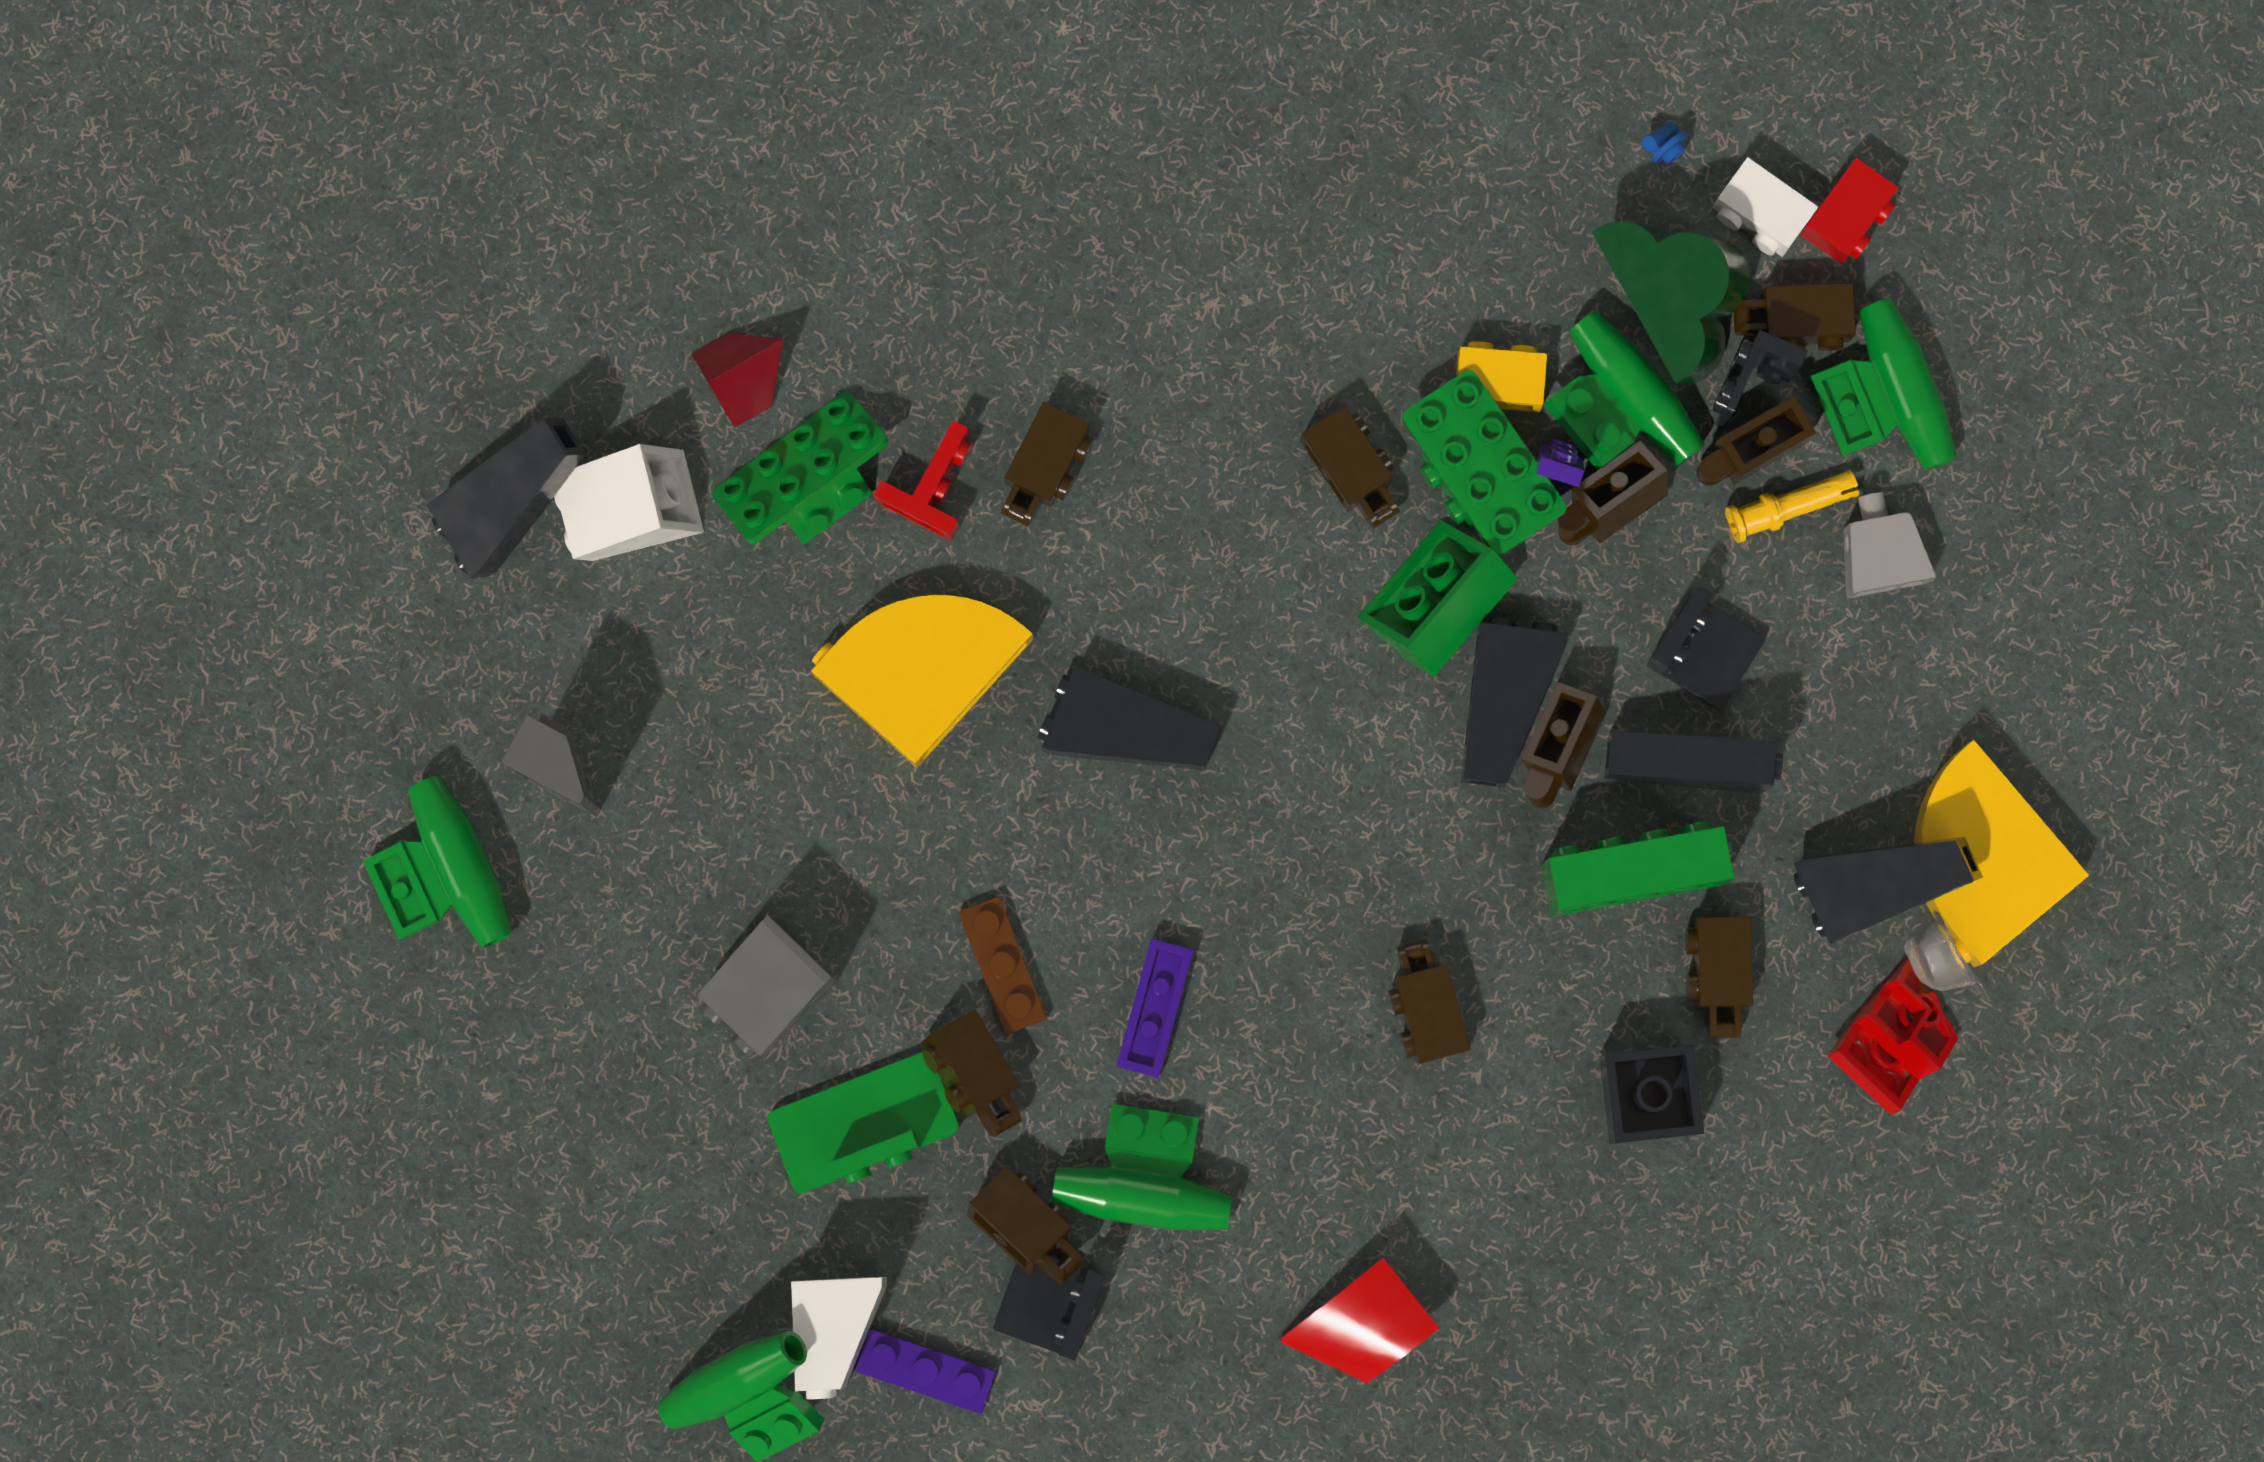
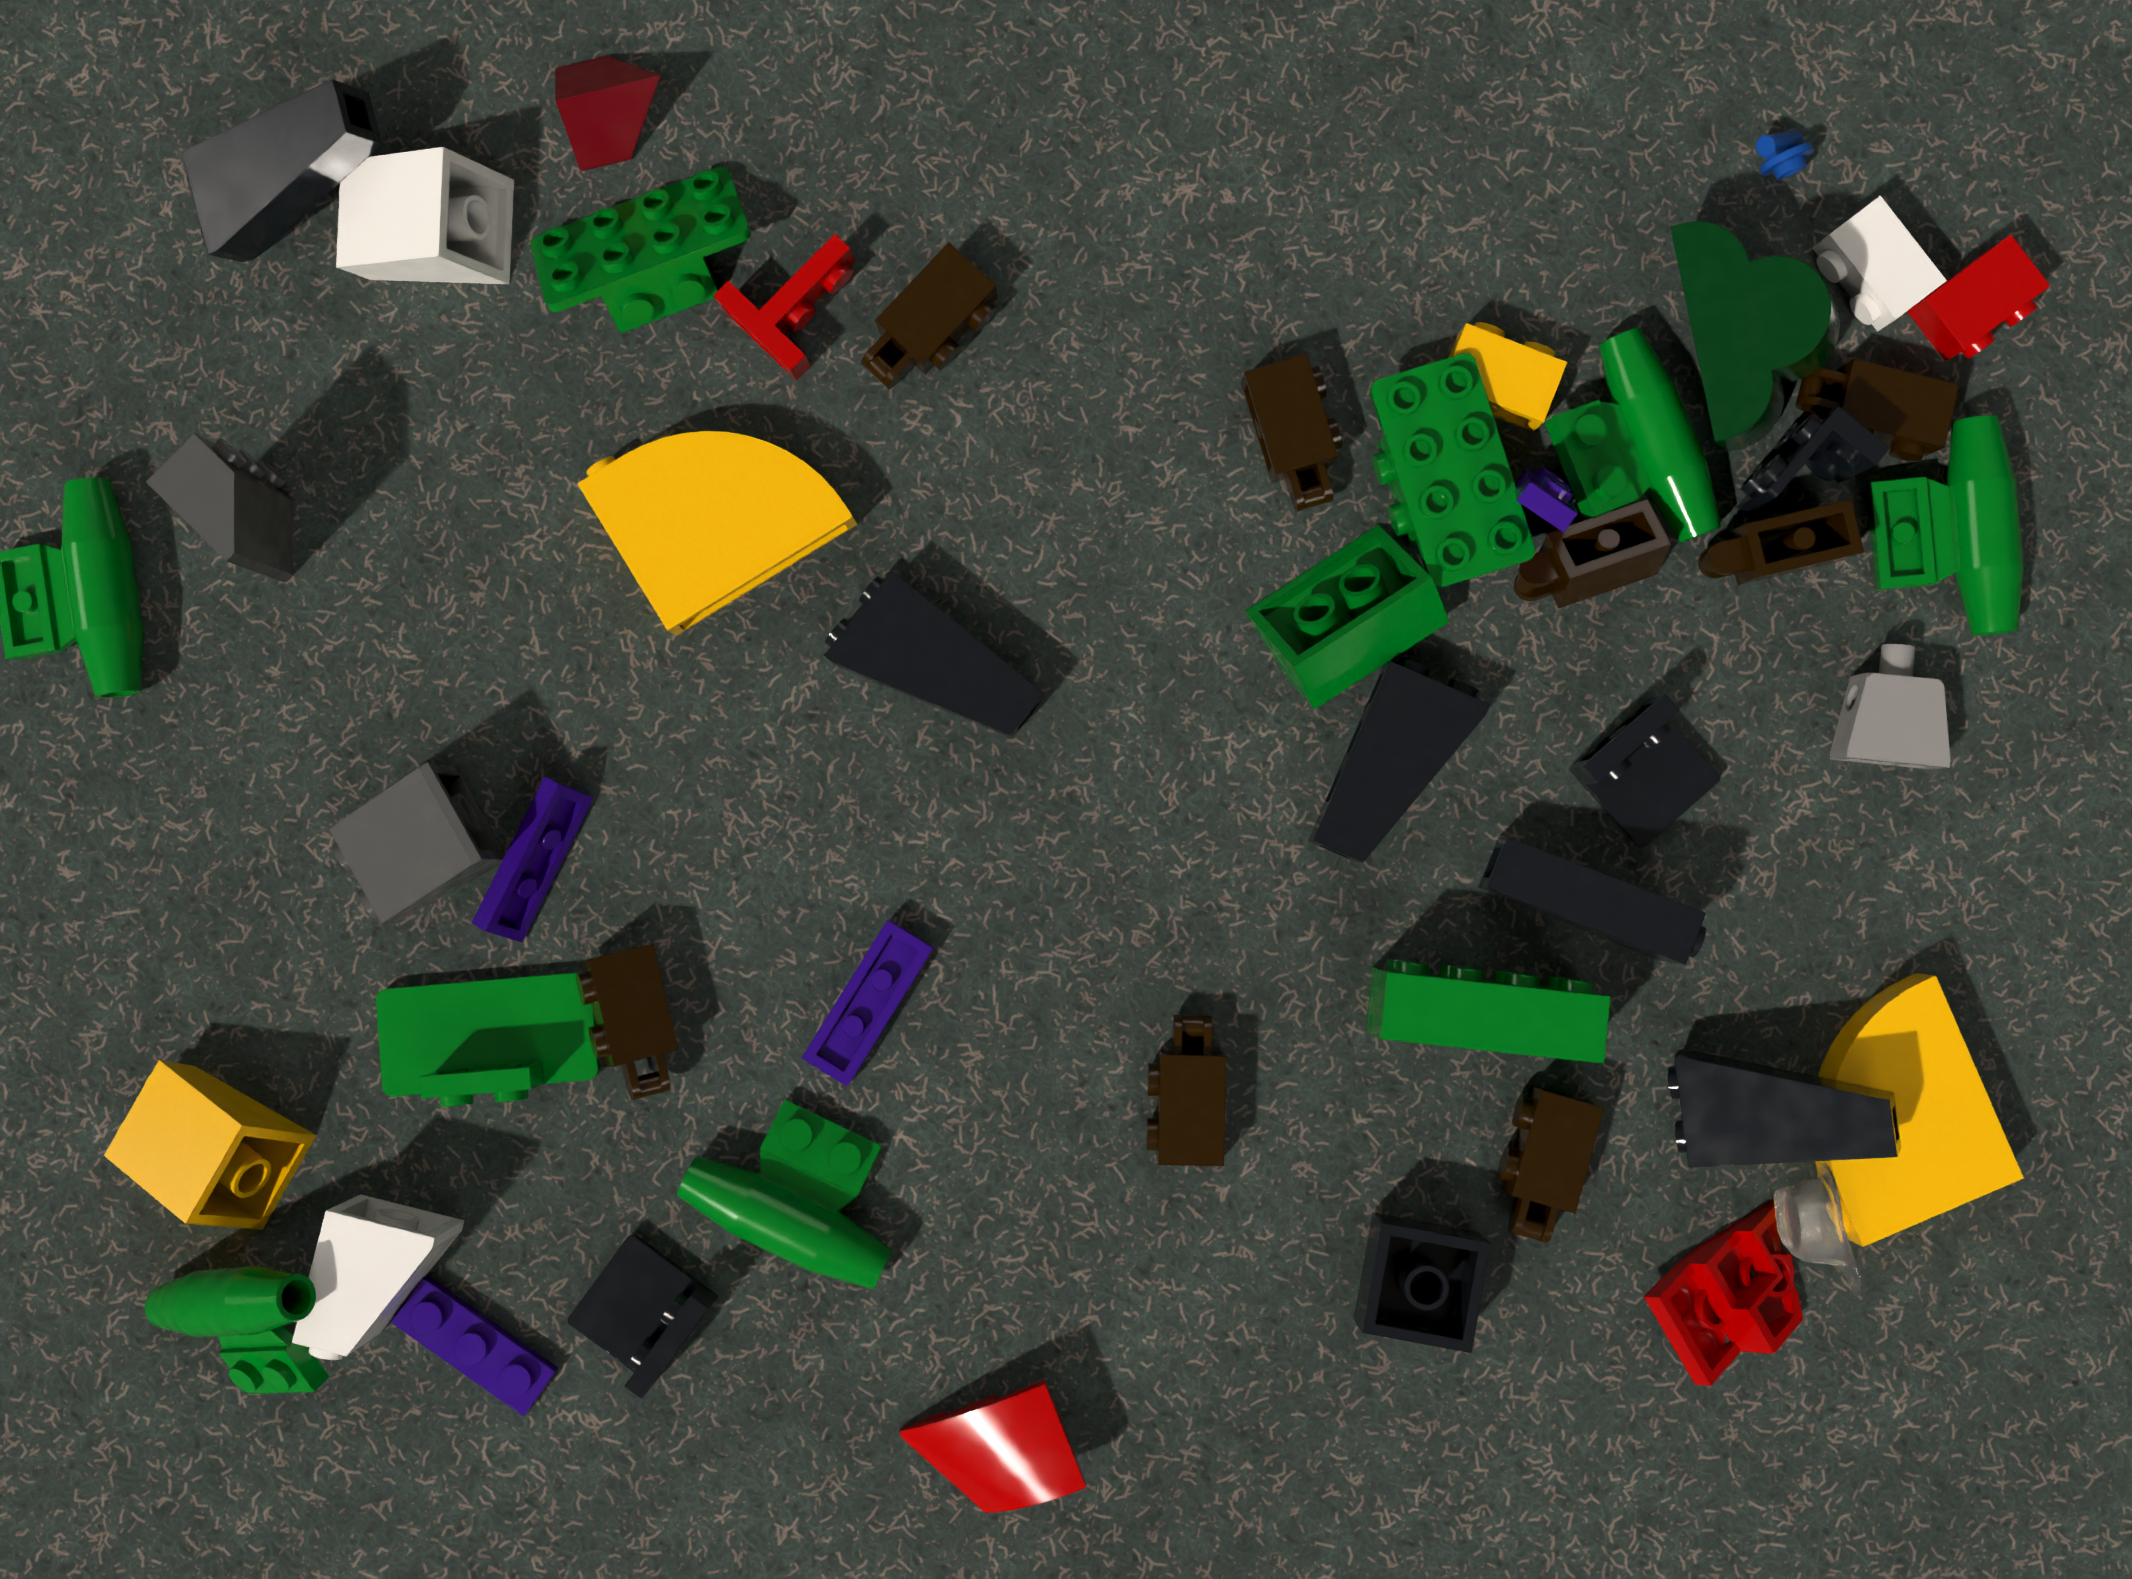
camera: 15 degrees right, 5 degrees up
(671, 1273) = (207, 1148): none -> yellow slope
(859, 974) = (532, 860): none -> dark purple plate
(1002, 965) = (705, 898): reddish brown plate -> none
(1025, 1225) = (636, 1214): dark brown brick -> none
(1561, 743) = (1441, 833): dark brown brick -> none
(1773, 510) = (1775, 630): yellow pin -> none

